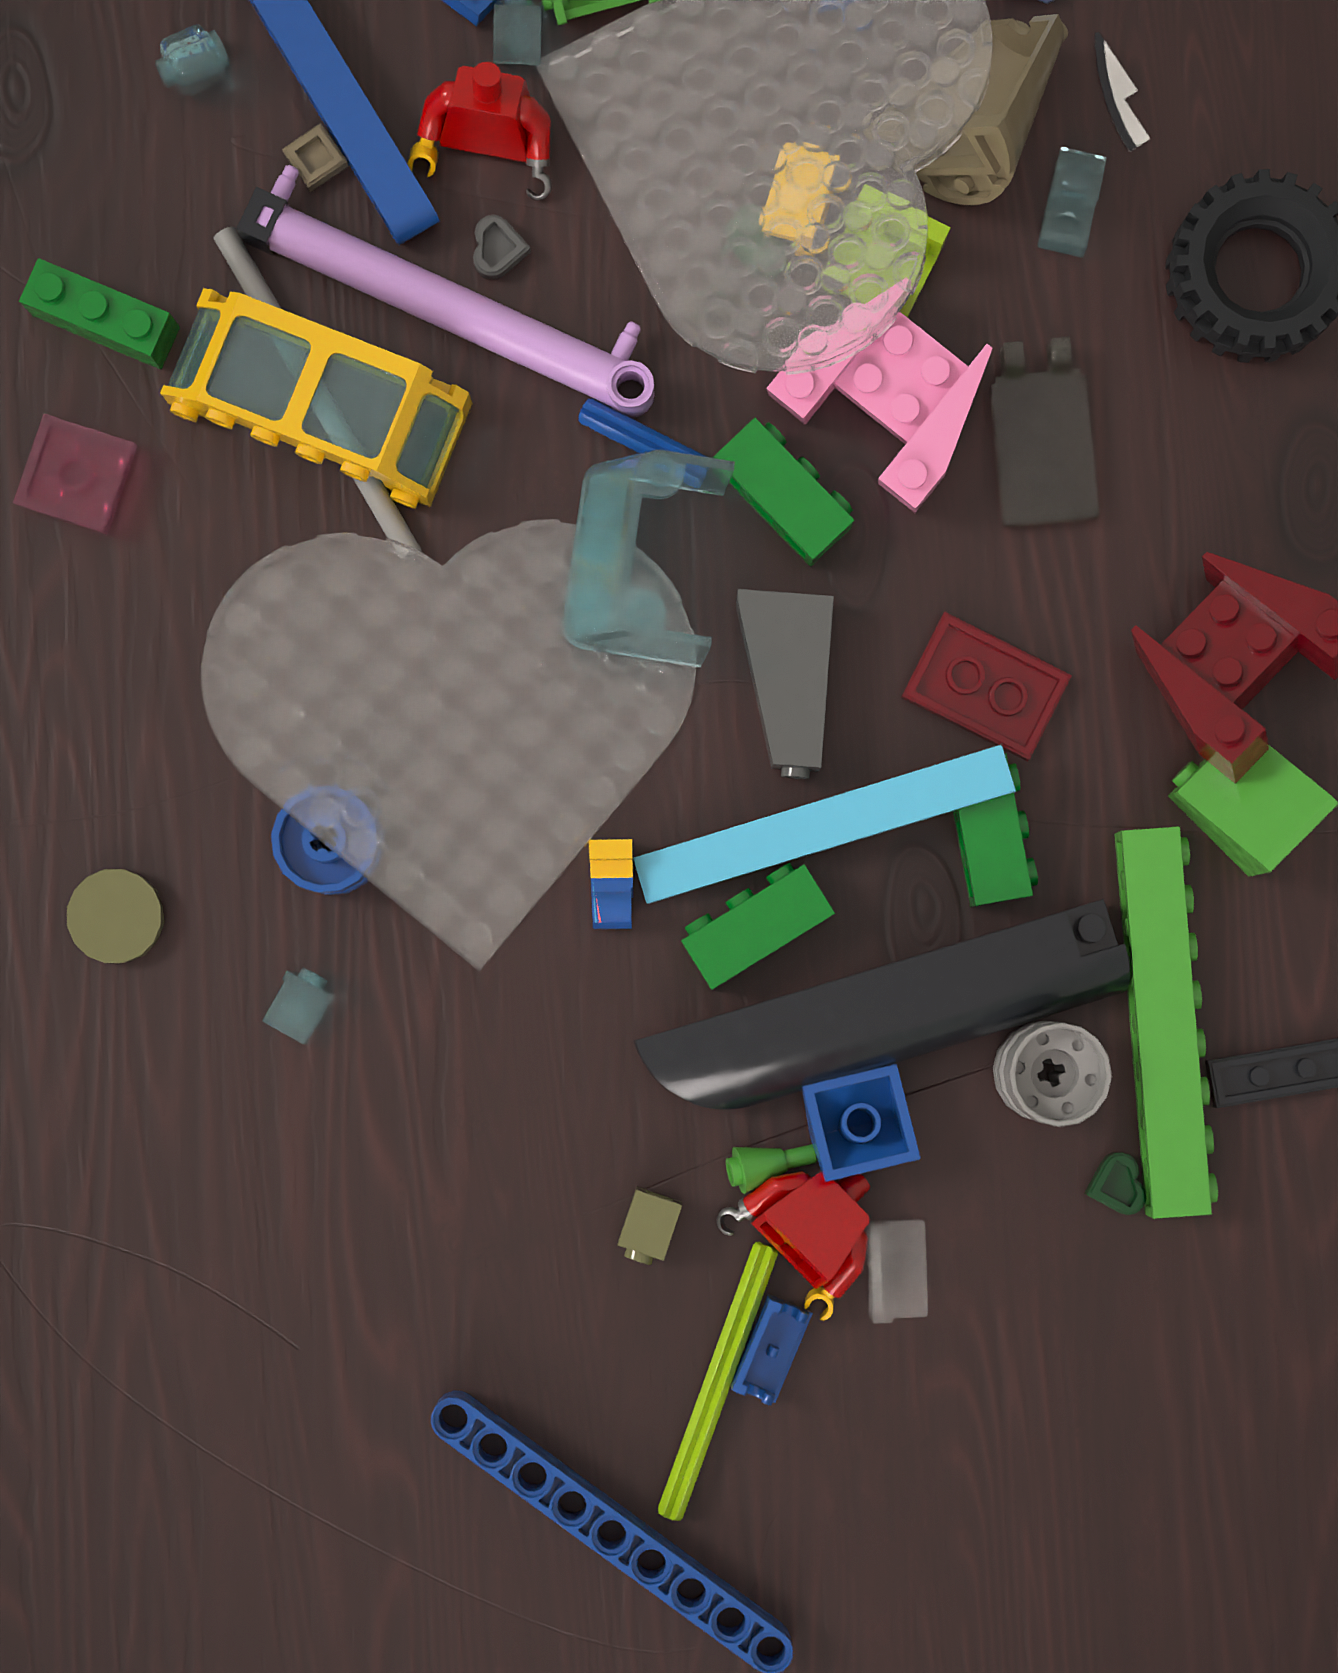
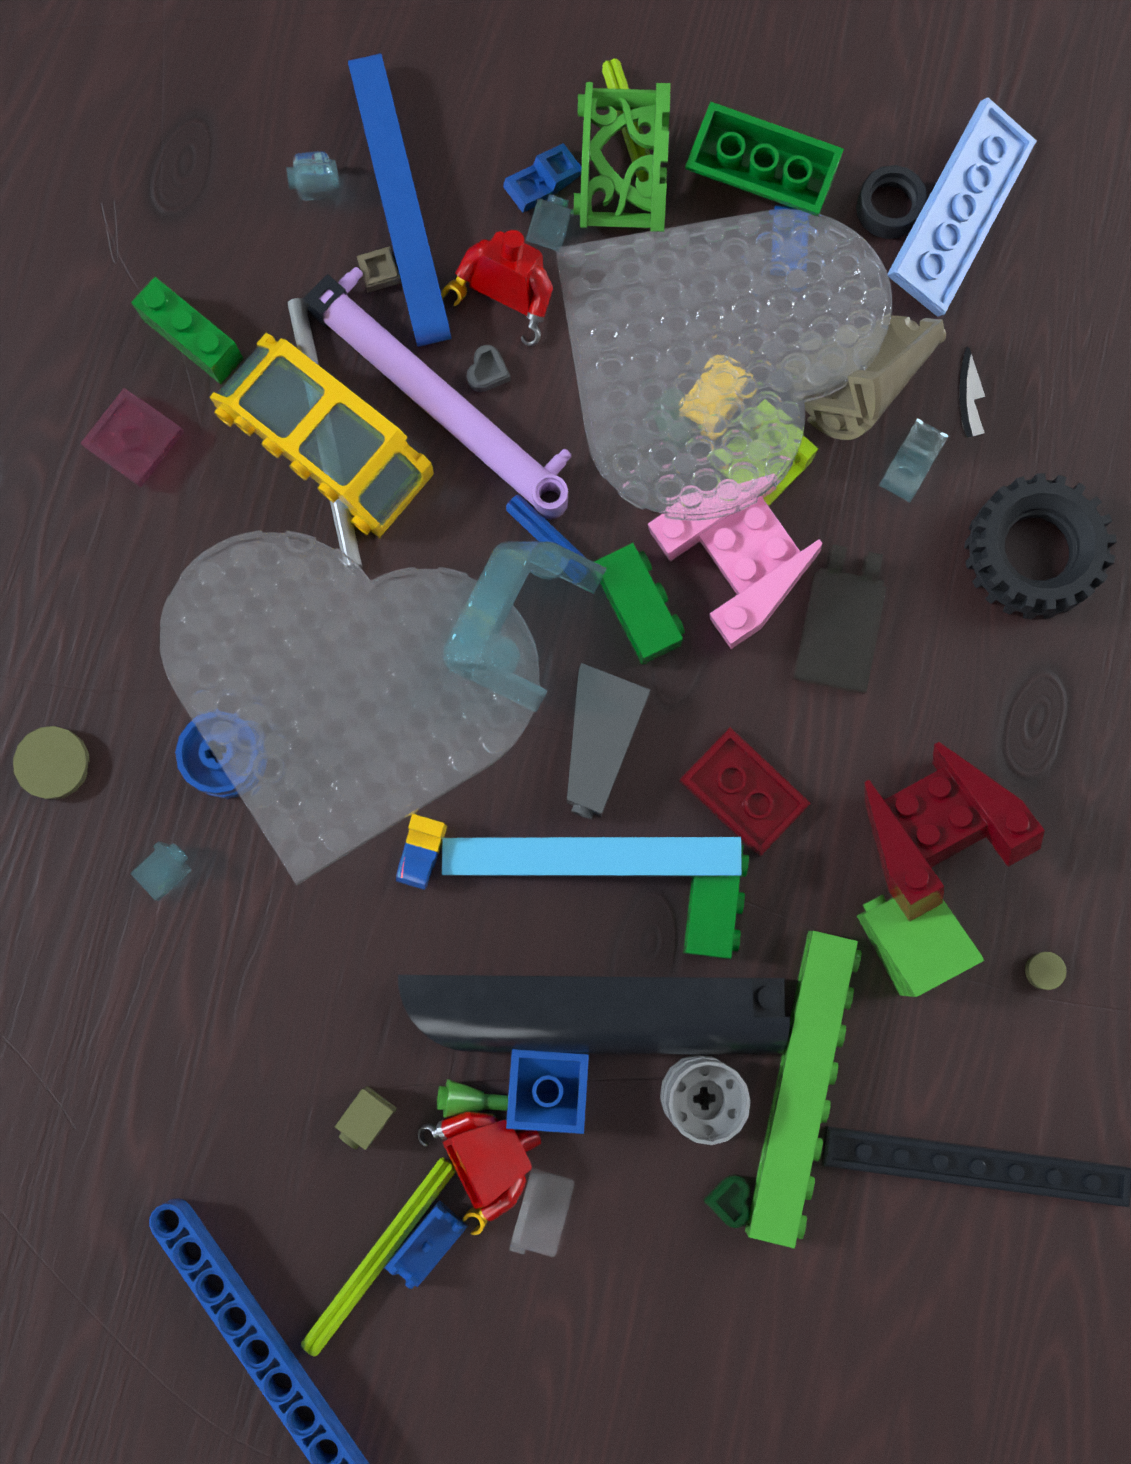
camera: 20 degrees right, 5 degrees down
(756, 924) = (516, 916): green brick -> none

